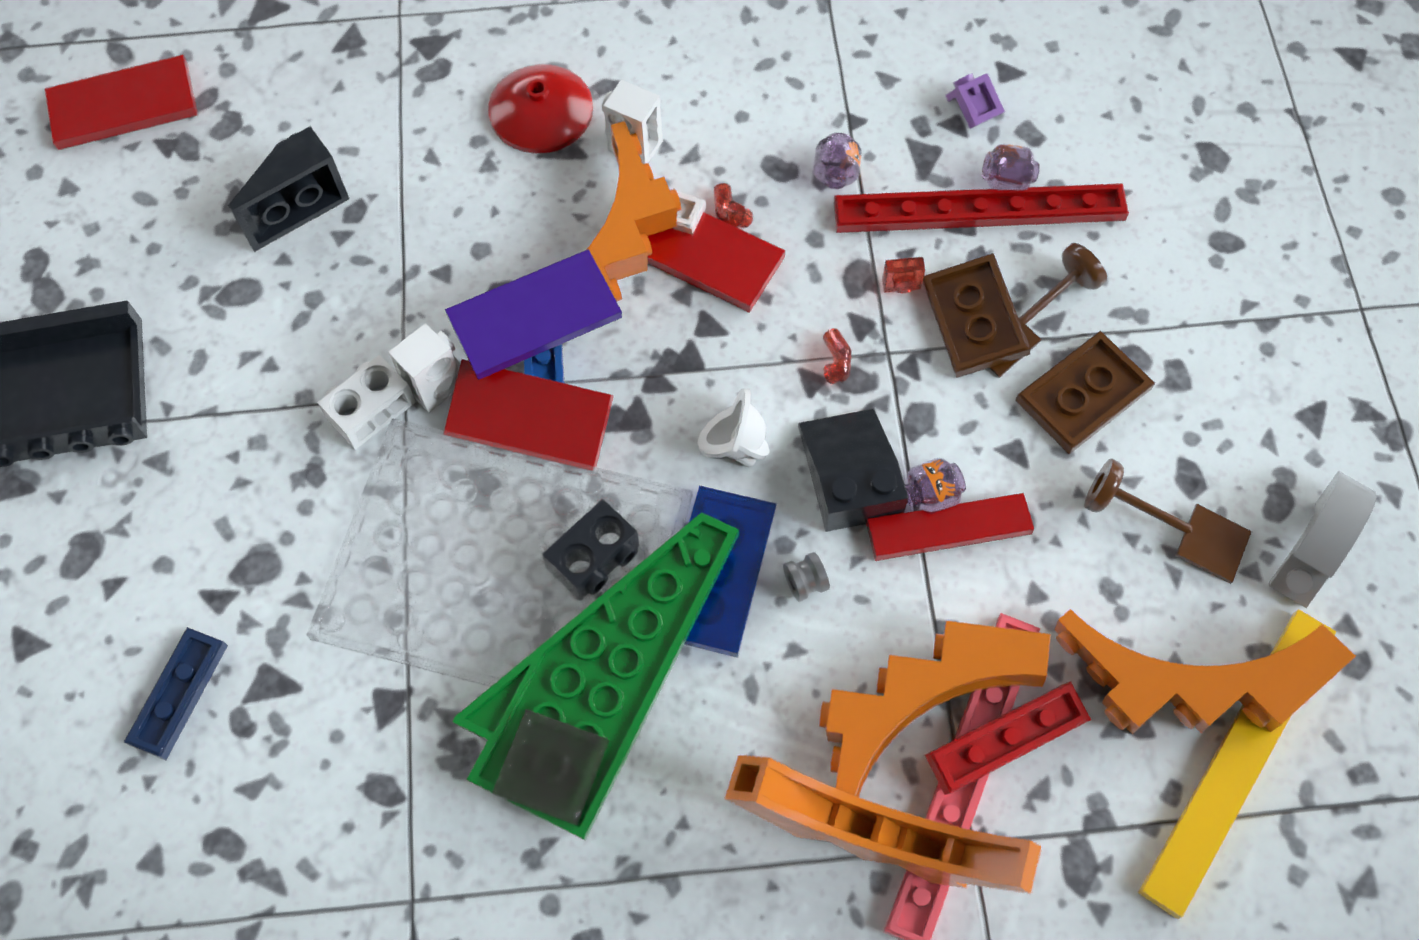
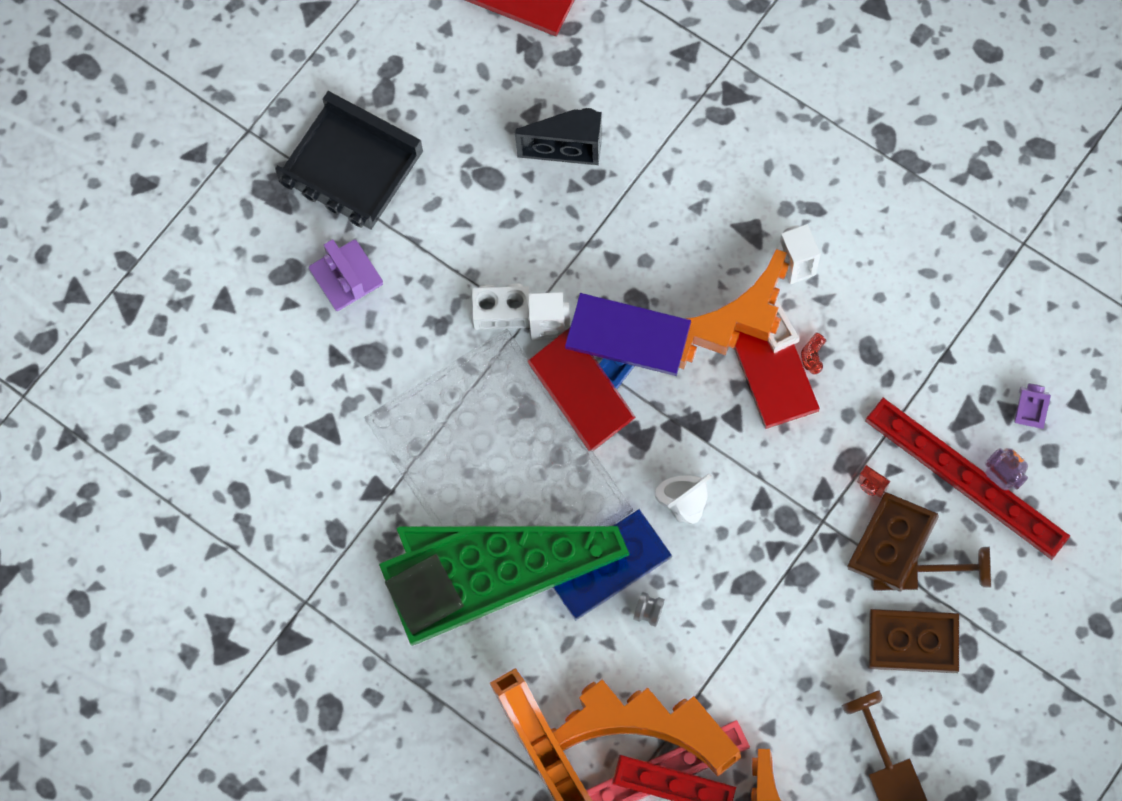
camera: 45 degrees right, 5 degrees up
(152, 502) = (345, 274): none -> medium lavender bracket
(176, 693) = (276, 393): dark blue tile -> none
(544, 119) = (761, 208): red dish -> none
(583, 544) = (544, 489): black brick -> none
(837, 159) = (904, 376): clear purple head -> none
(841, 352) = (791, 498): clear red arm -> none
(852, 469) = (732, 570): black slope -> none
(935, 485) = (768, 620): clear purple head -> none
(950, 528) = (756, 650): red tile -> none

